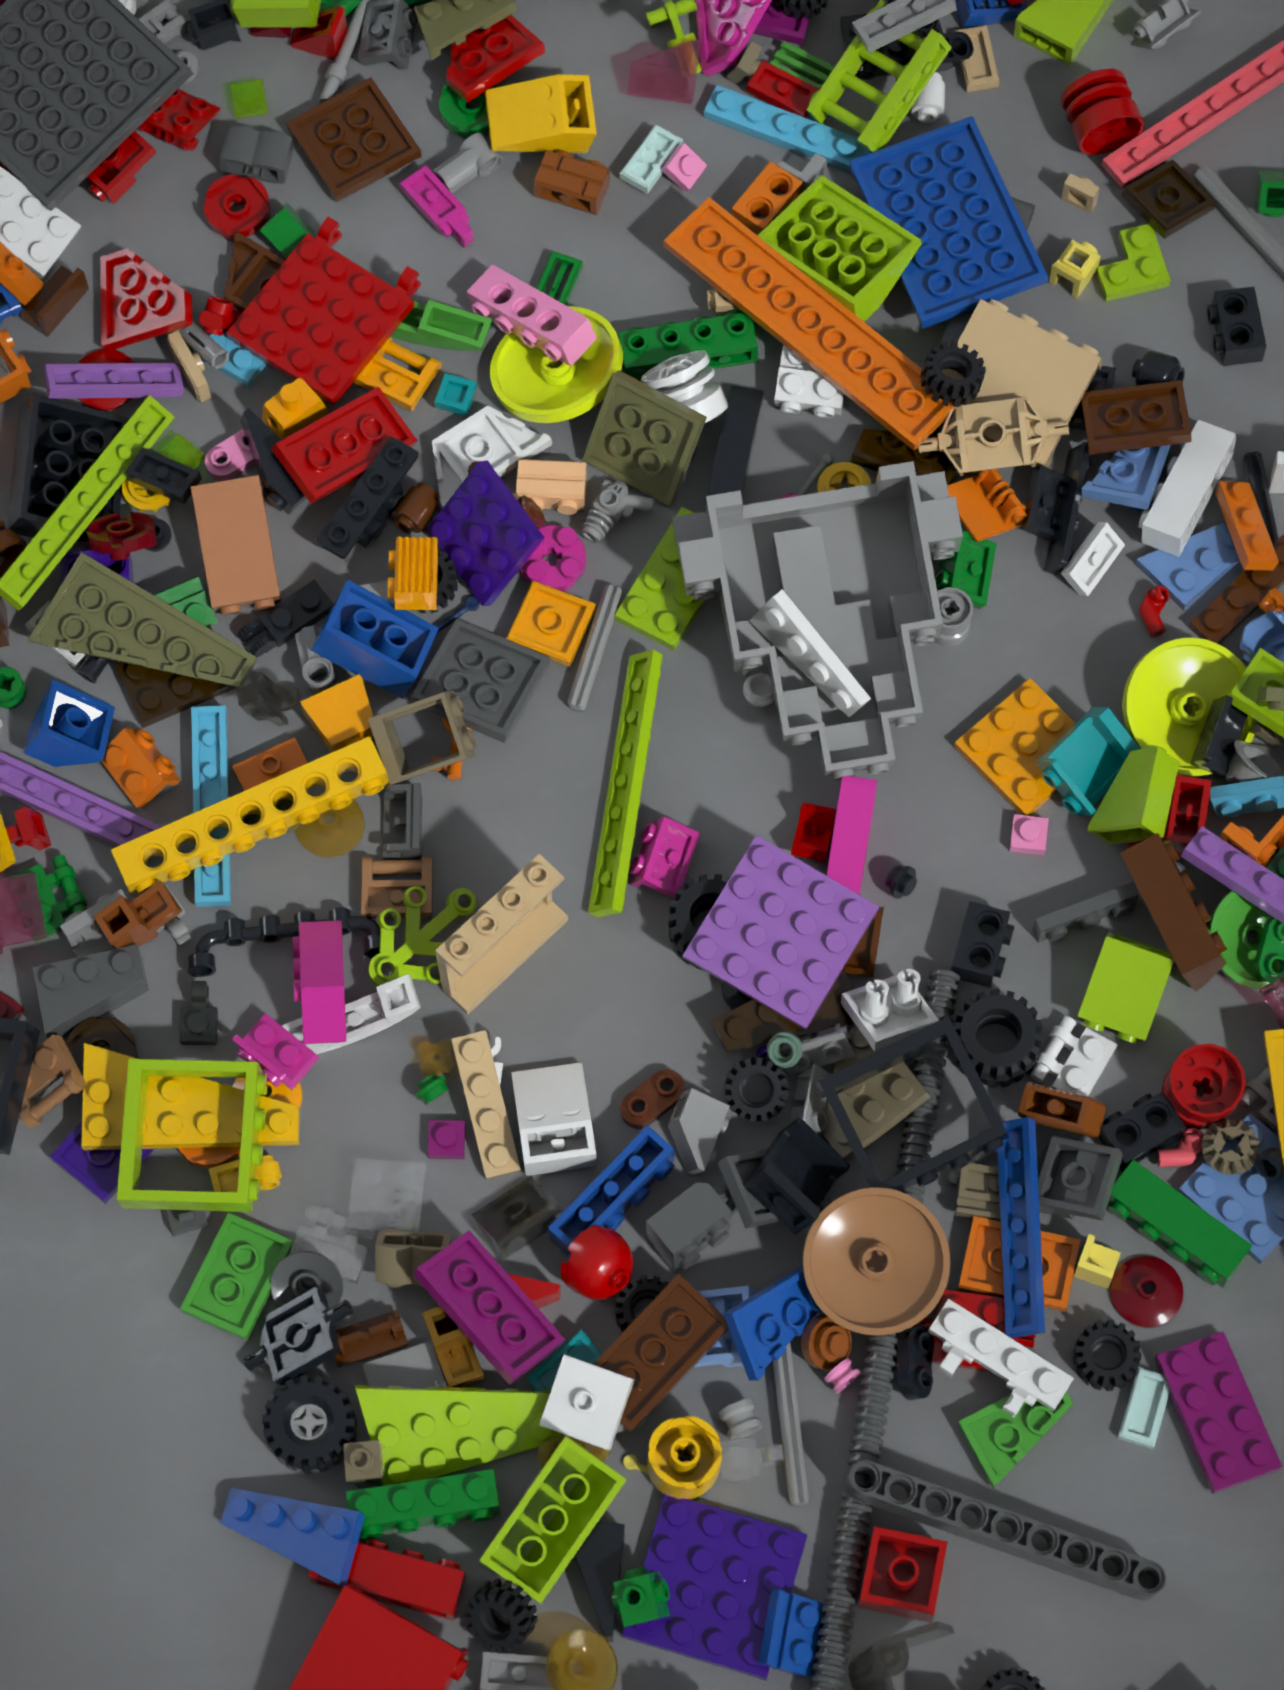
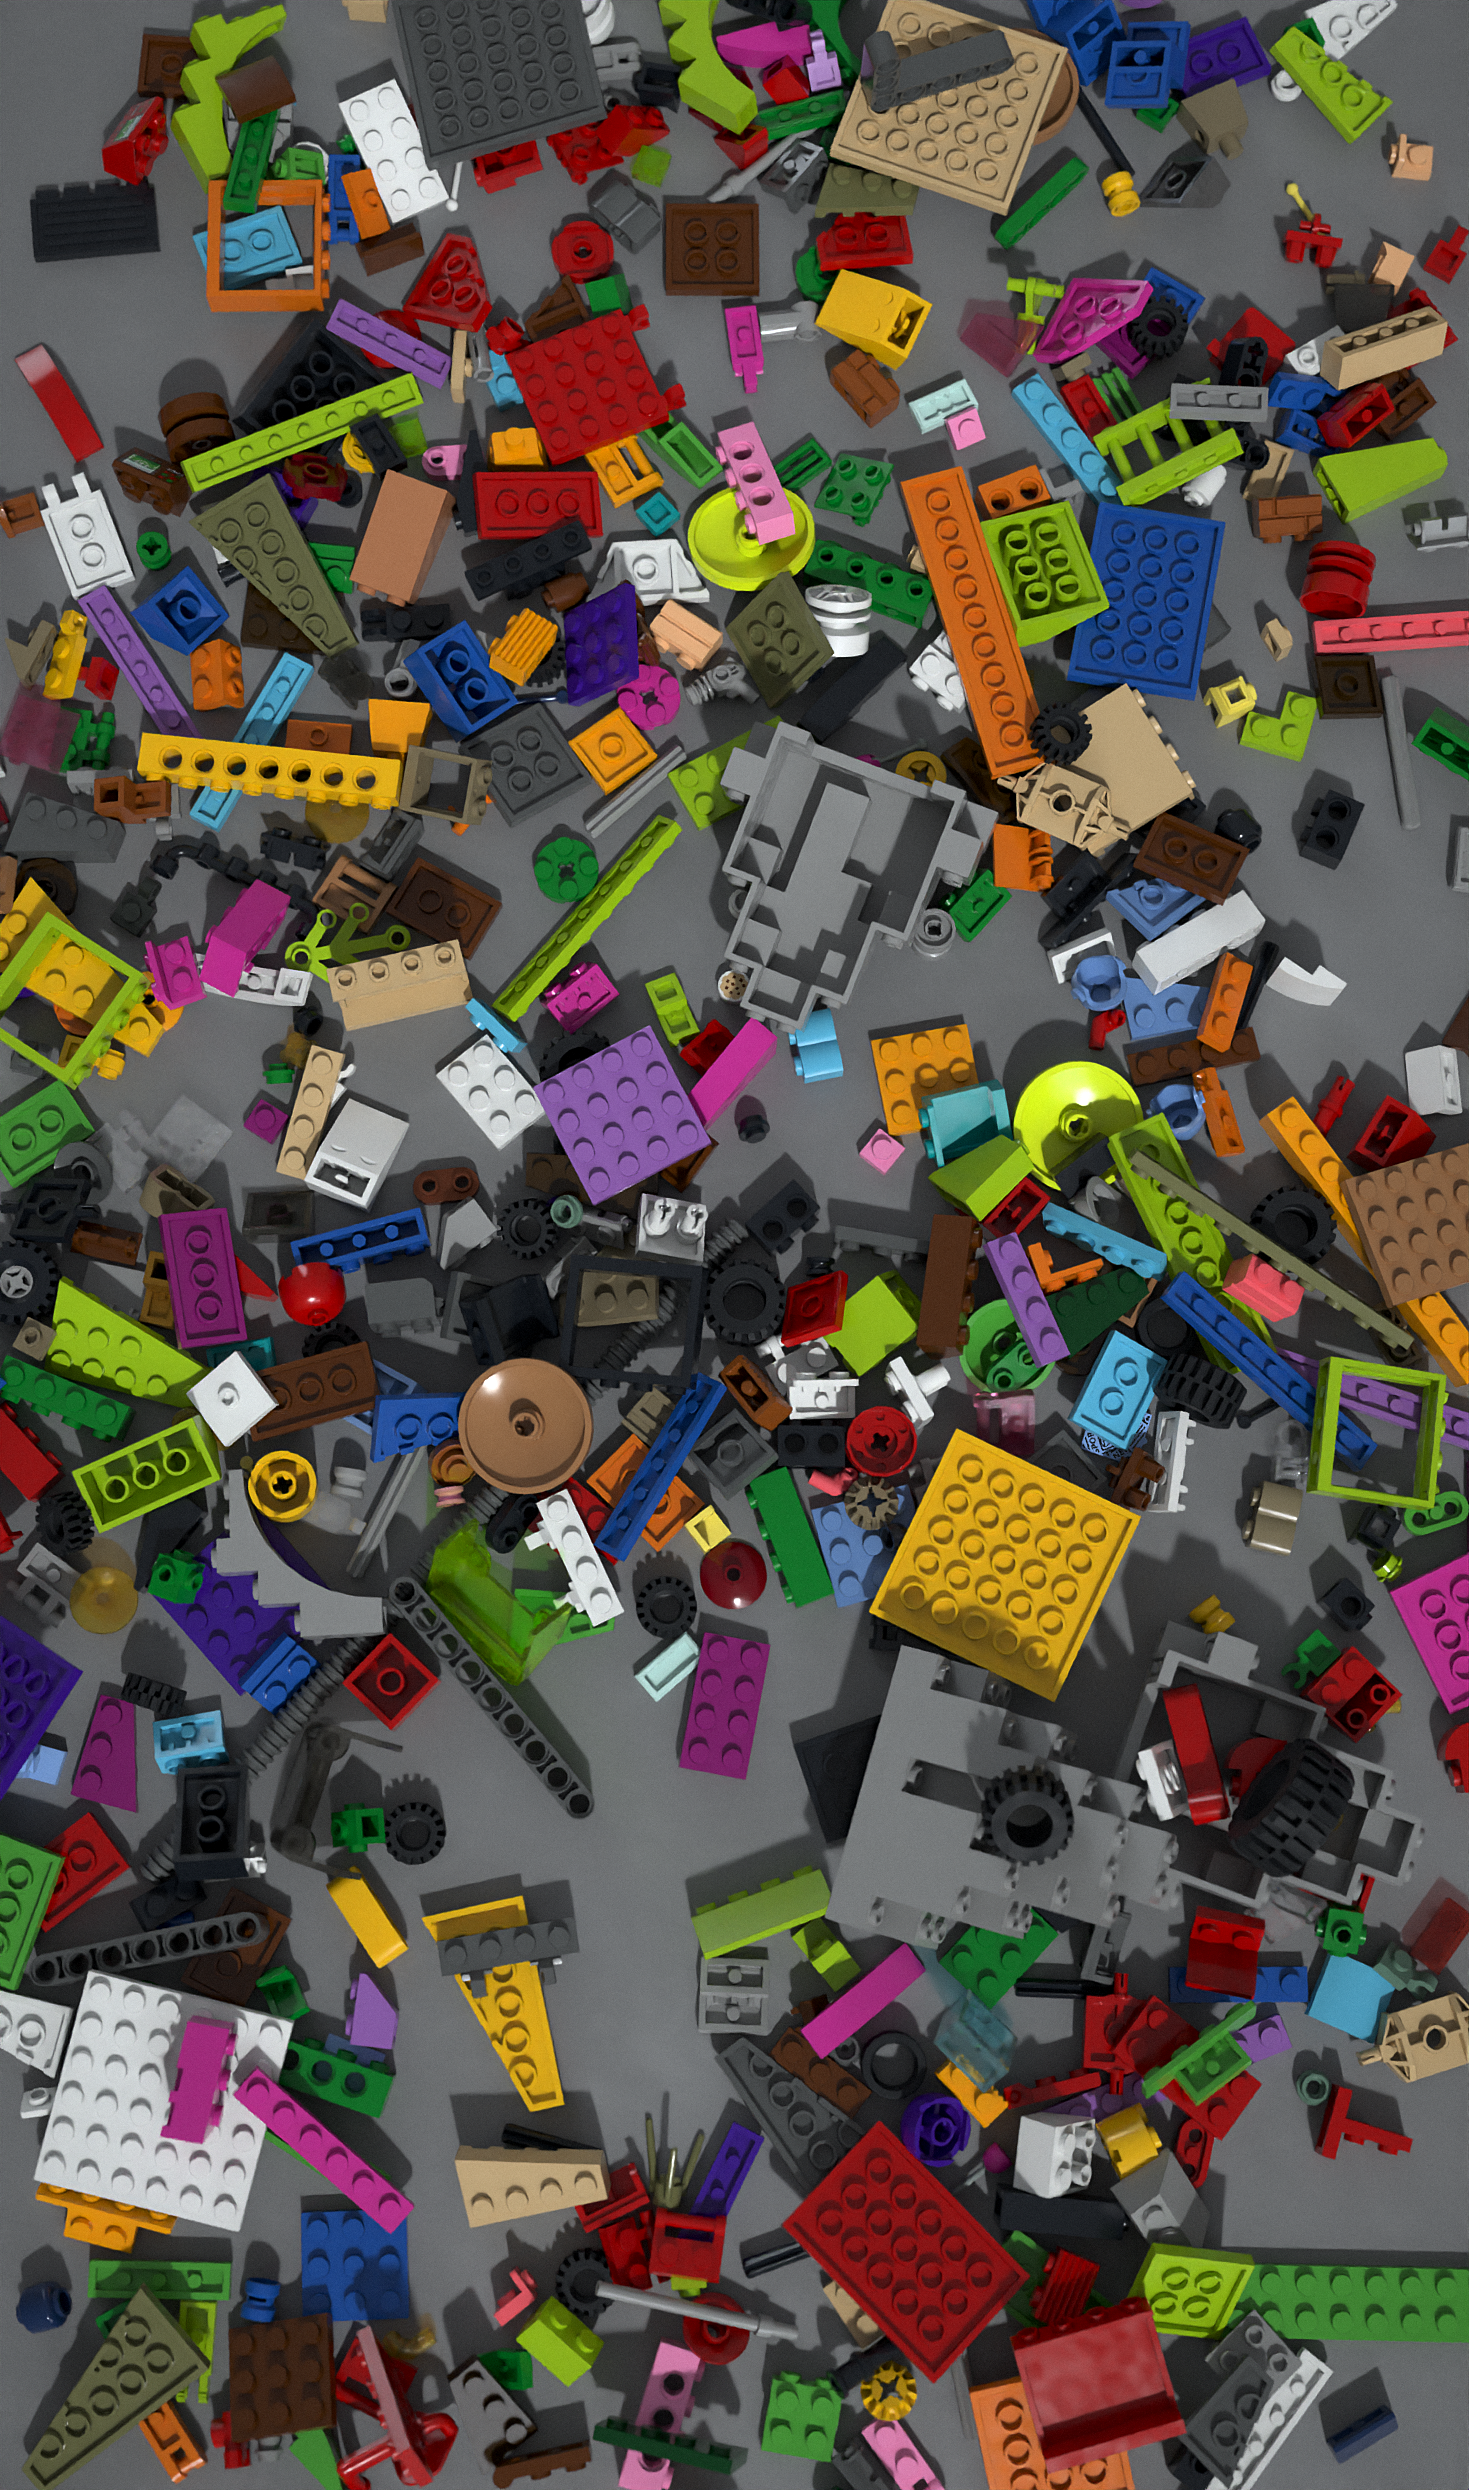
camera: 25 degrees right, 10 degrees up
(86, 230) = (452, 204): none -> white hinge
(212, 76) = (630, 128): none -> red slope
(299, 880) = (307, 850): none -> black hinge
(426, 1025) = (307, 1021): none -> black plate
(484, 849) = (443, 907): none -> reddish brown plate
(567, 737) = (566, 852): none -> green plate
(618, 272) = (855, 487): none -> green hinge
(620, 932) = (485, 1017): none -> medium azure plate
(640, 990) = (492, 1092): none -> white plate
(752, 818) = (672, 1010): none -> lime slope
(798, 640) = (787, 887): white wing -> none
(799, 768) = (732, 986): none -> tile
(799, 1543) = (249, 1552): none -> light grey arch
(913, 777) = (817, 1049): none -> medium azure brick
(957, 1458) = (486, 1613): none -> clear neon green windscreen
(1019, 83) = (1287, 516): none -> dark orange brick
(1042, 967) = (819, 1266): none -> black bush
(1066, 1003) = (814, 1308): none -> red plate
(1123, 1079) = (822, 1397): none -> white bracket
(1126, 572) = (1099, 982): none -> medium blue cap
(1201, 1023) = (914, 1389): none -> white plate

